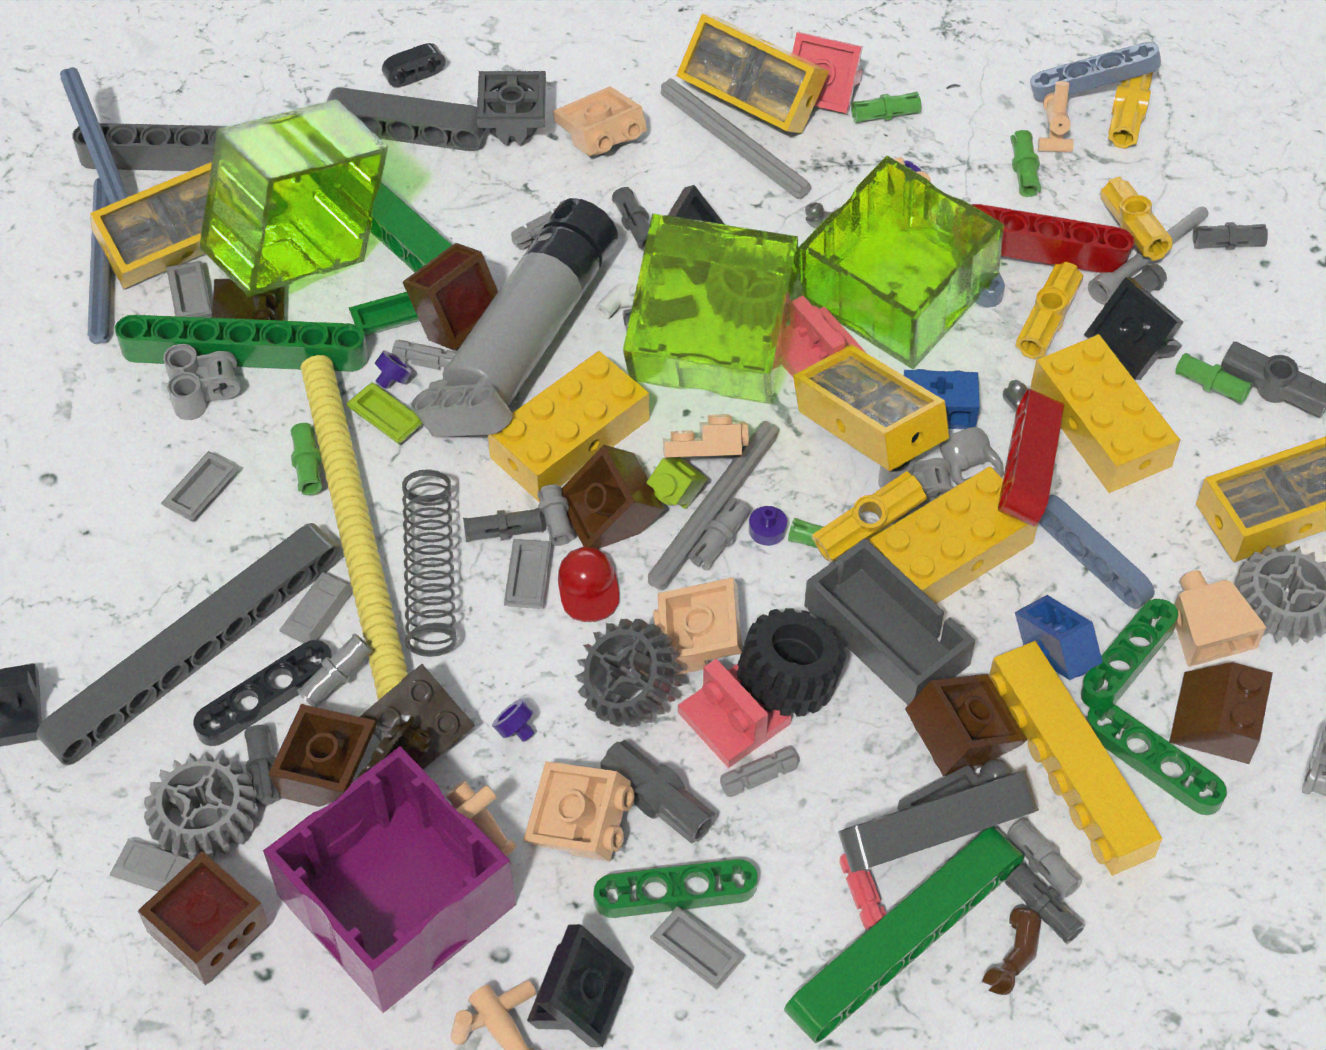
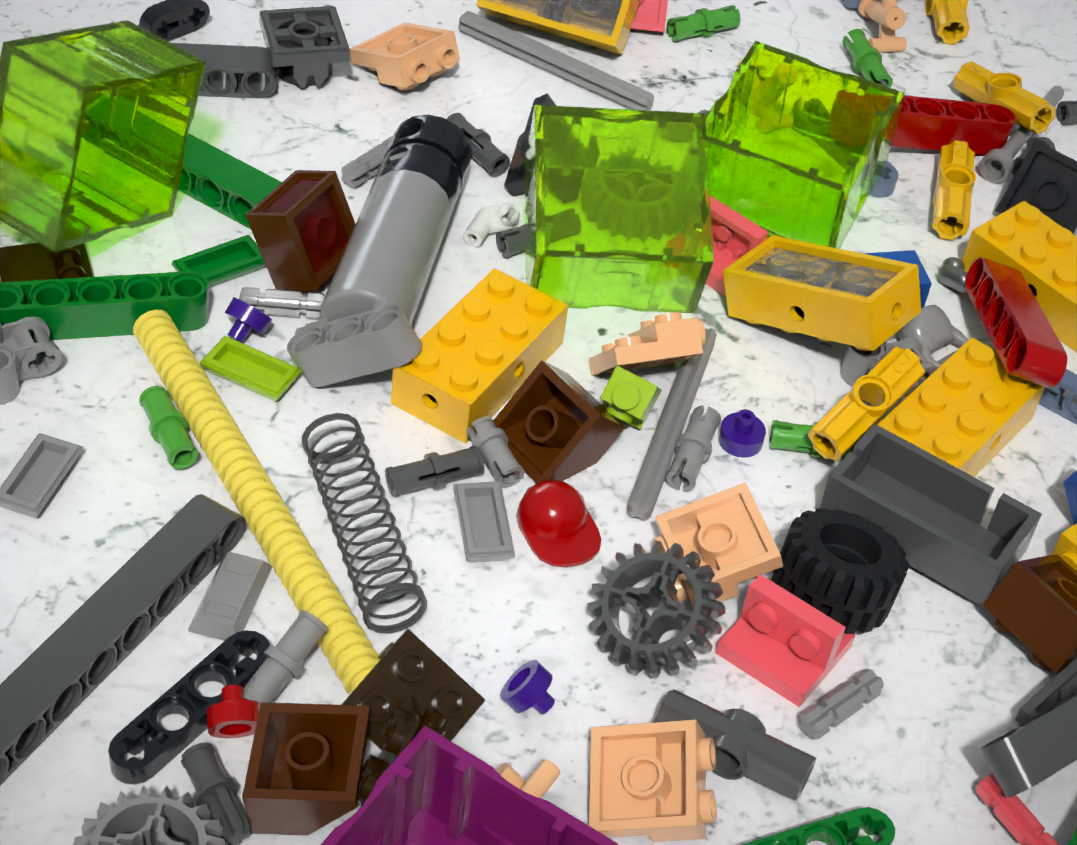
camera: 20 degrees left, 10 degrees down
(285, 707) = (232, 716): none -> red tile

